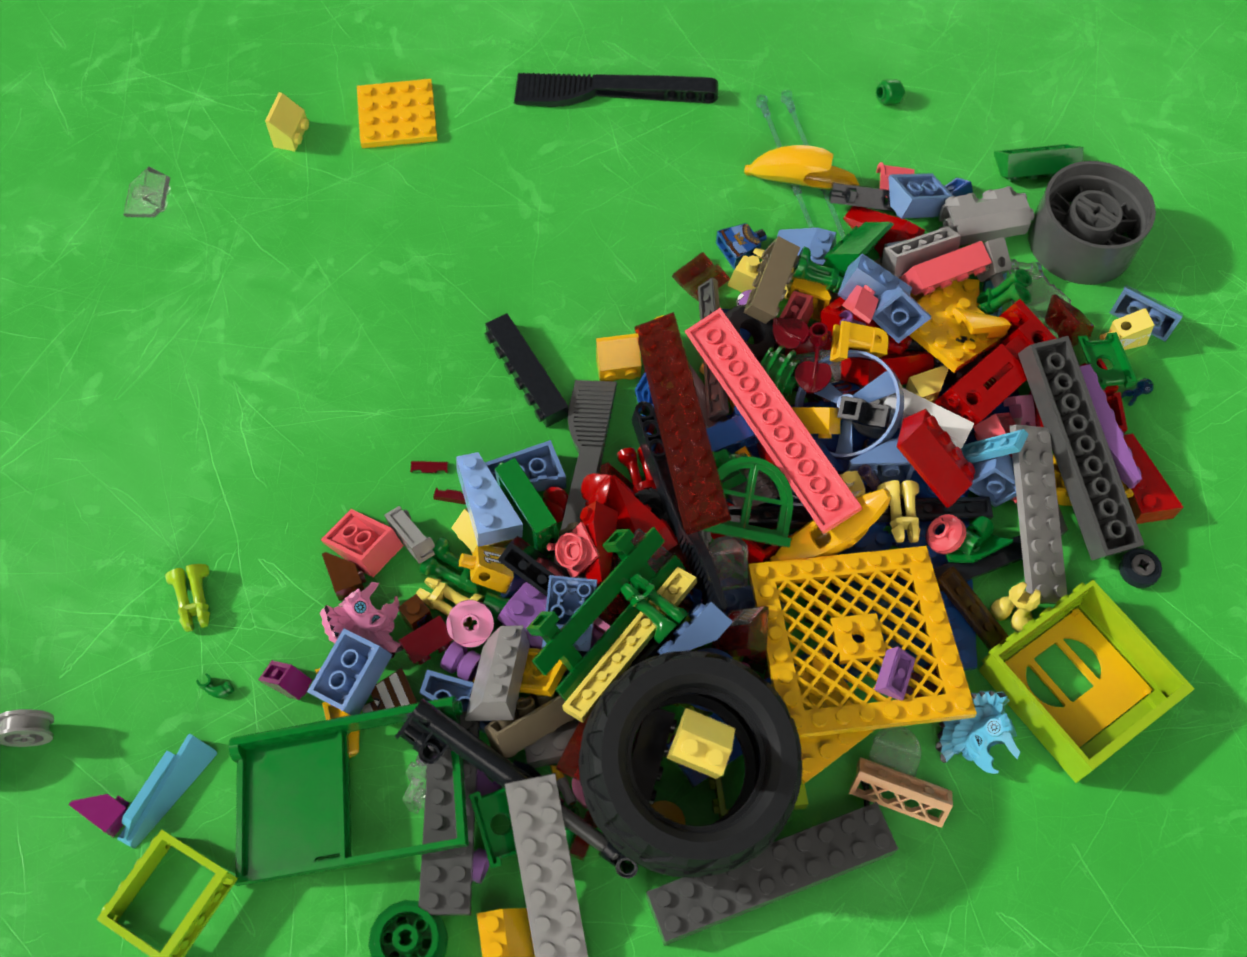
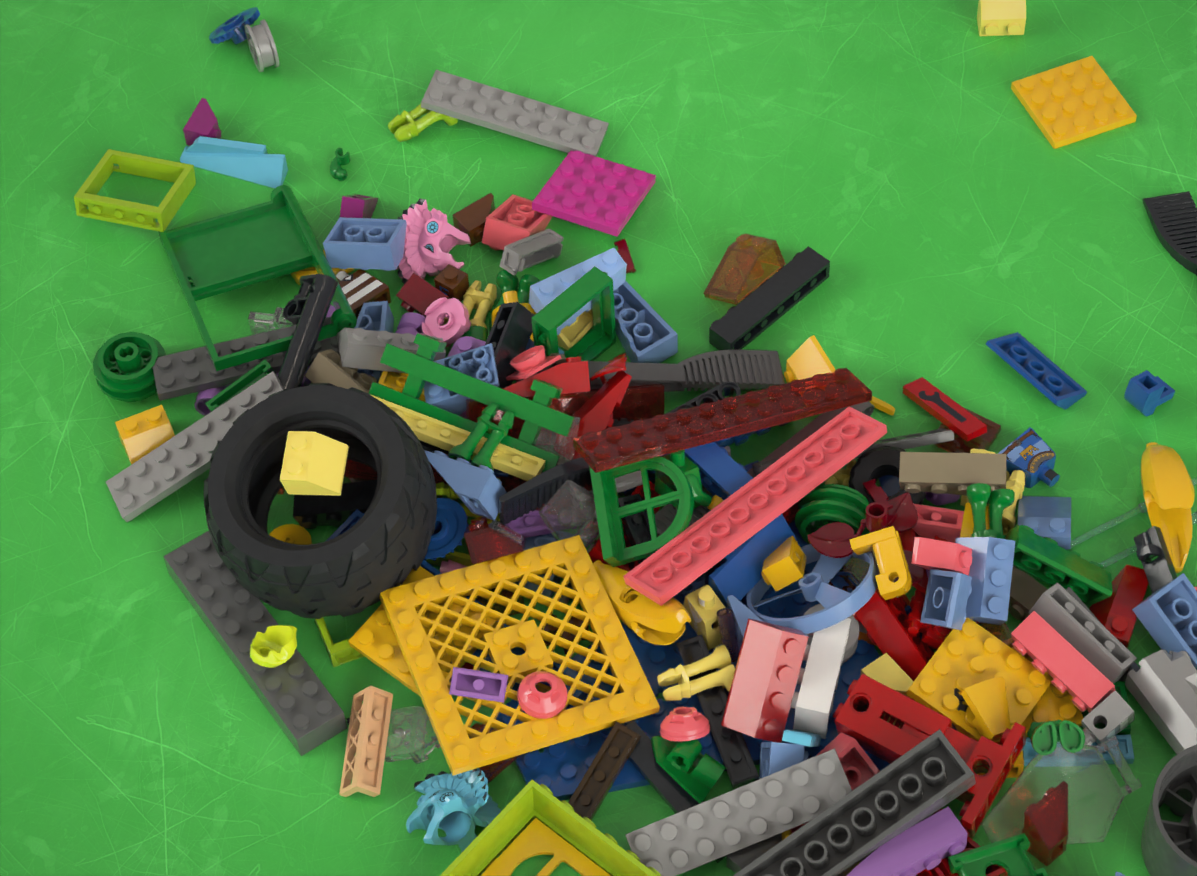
camera: 80 degrees right, 10 degrees down
(228, 515) = (513, 114): none -> light grey plate
(350, 471) = (594, 192): none -> dark pink plate
(490, 377) = (744, 268): none -> clear orange slope
(654, 214) = (1037, 369): none -> blue slope
(679, 281) = (944, 409): none -> red tile
(705, 153) = (1147, 392): none -> blue brick
(769, 339) = (877, 493): none -> dark red piece
(811, 846) = (274, 645): none -> neon yellow hair
(864, 413) = (799, 591): black slope -> none
(906, 634) = (542, 704): none -> coral piece
(1022, 600) = (618, 815): light yellow piece -> none

